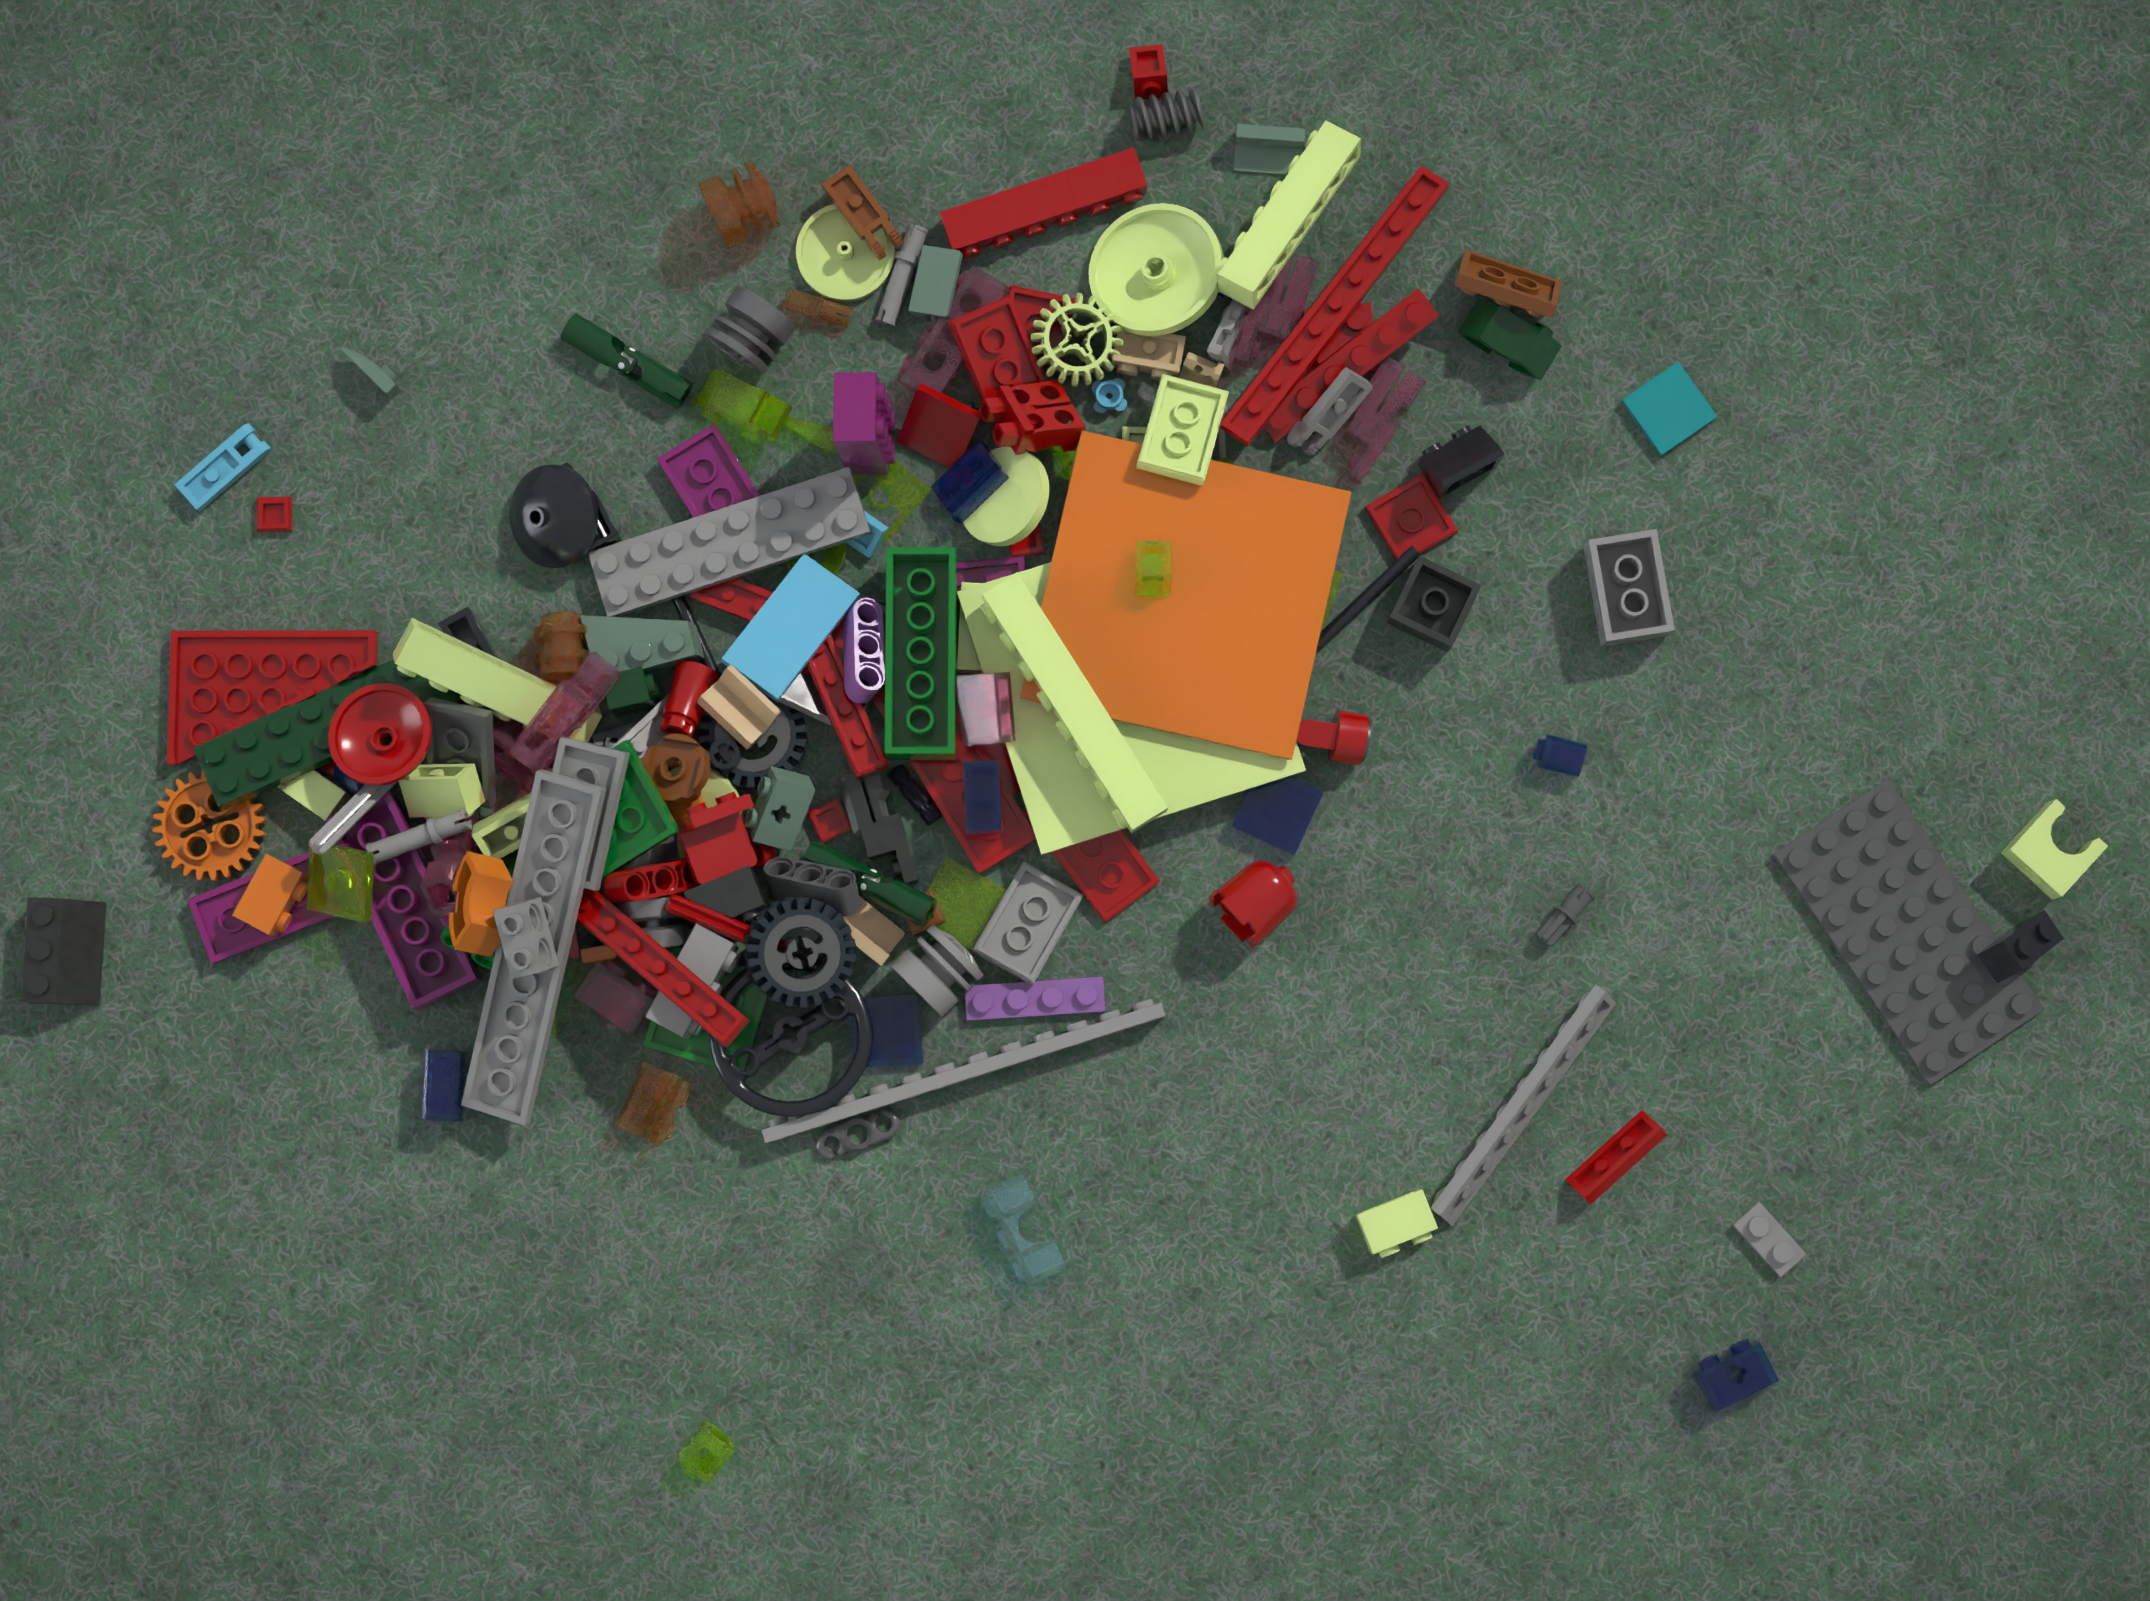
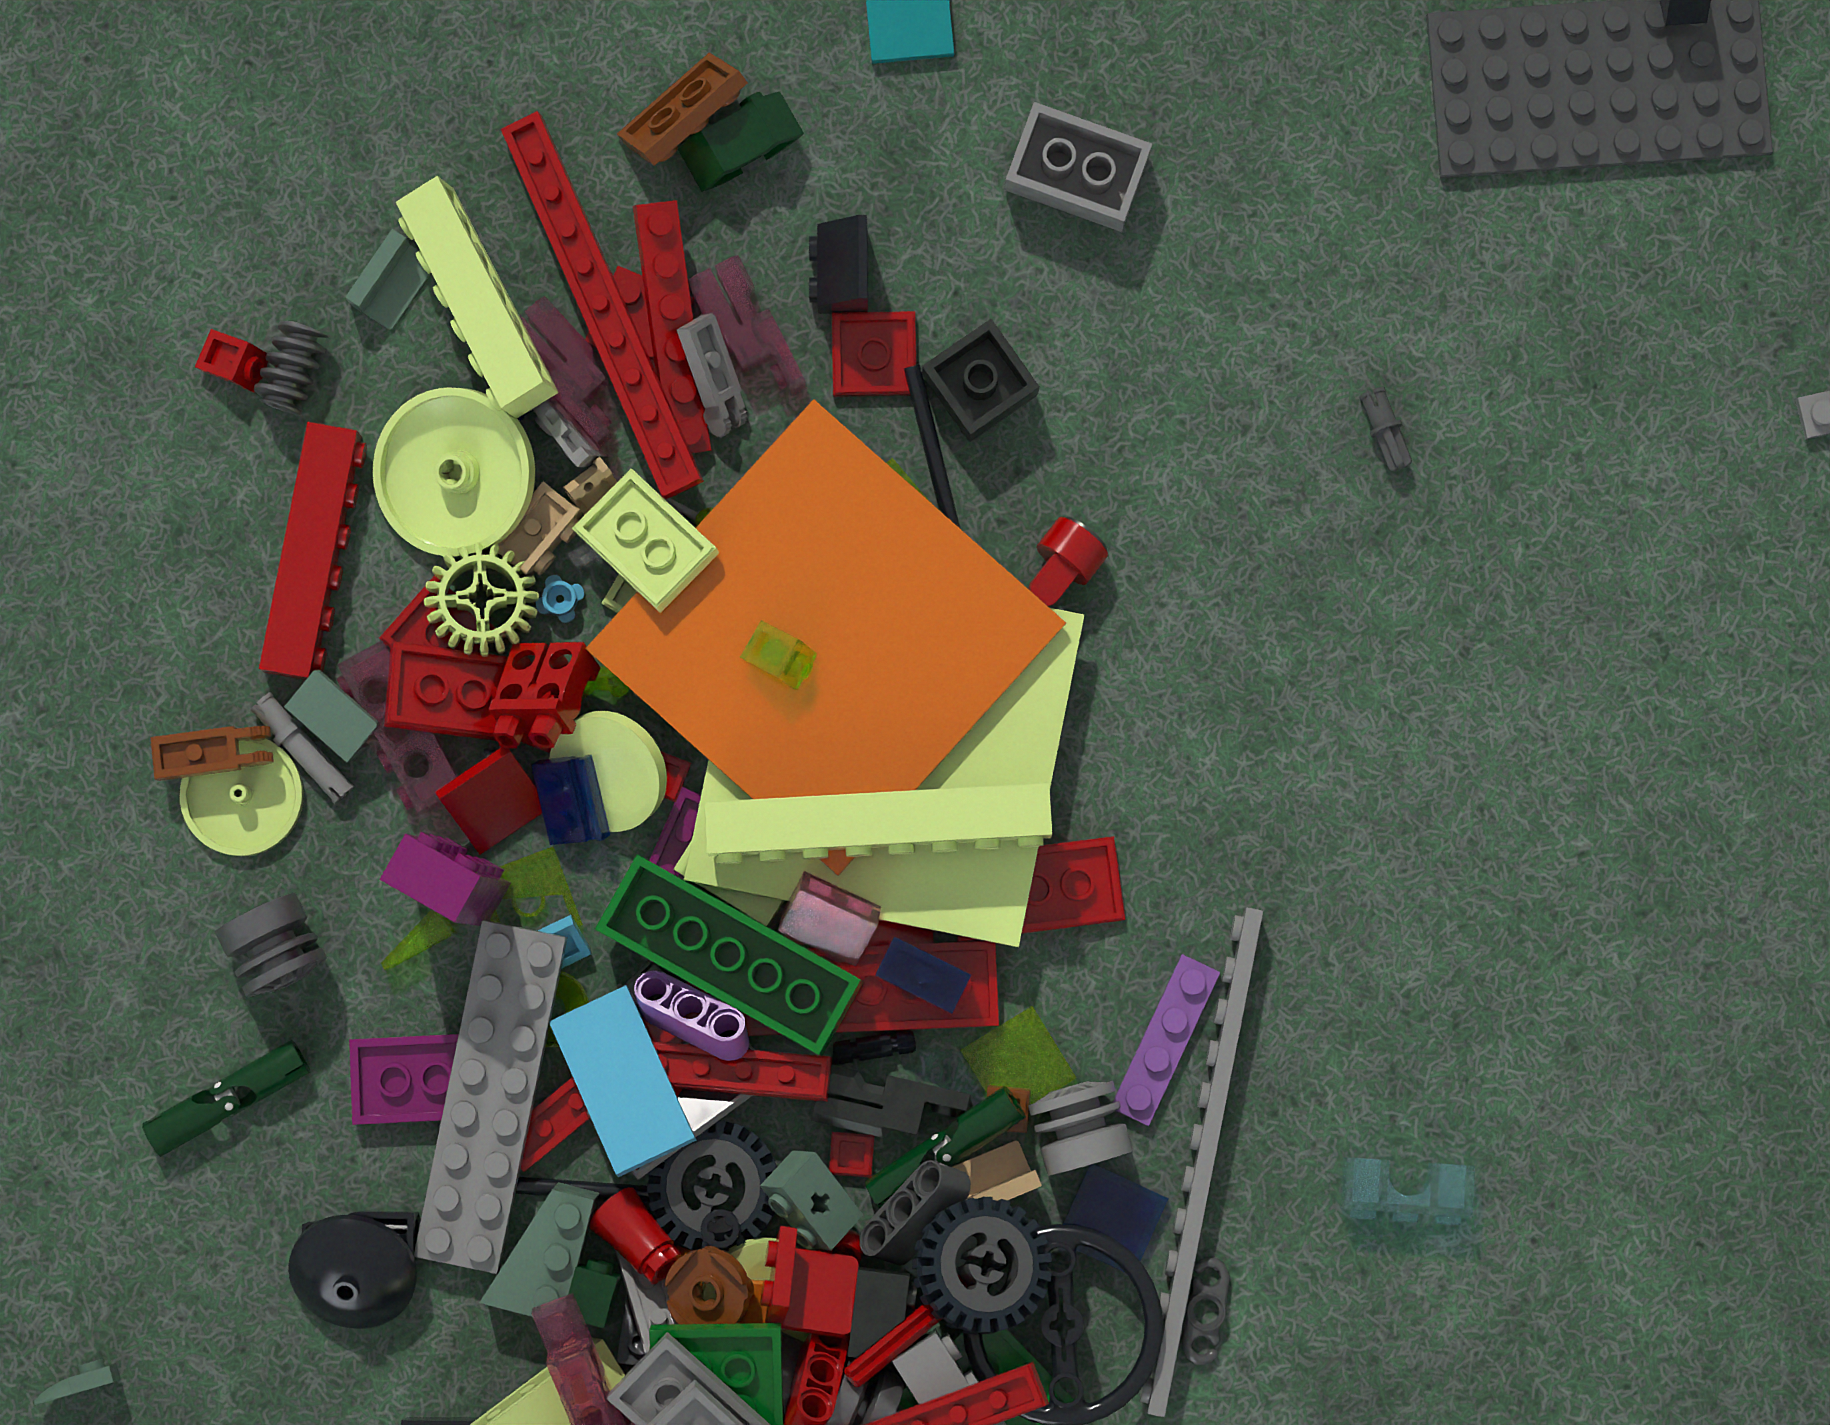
camera: 60 degrees left, 0 degrees up
(563, 645) = (501, 1339): clear orange piece -> none
(739, 707) = (678, 1184): tan panel -> none
(740, 204) = (125, 879): clear orange wheel -> none
(742, 406) = (348, 999): clear neon green brick -> none
(817, 307) = (285, 858): clear orange axle -> none
(1027, 923) = (1081, 1002): light grey tile -> none
(1256, 900) = (1193, 745): red cylinder -> none
(1278, 813) = (1111, 669): clear blue plate -> none
(1396, 1223) = (1615, 788): yellowish green brick -> none
(1517, 1113) = (1568, 597): light grey plate -> none
(1560, 755) = (1214, 338): clear blue brick -> none
(1616, 1157) = (1670, 520): red plate -> none

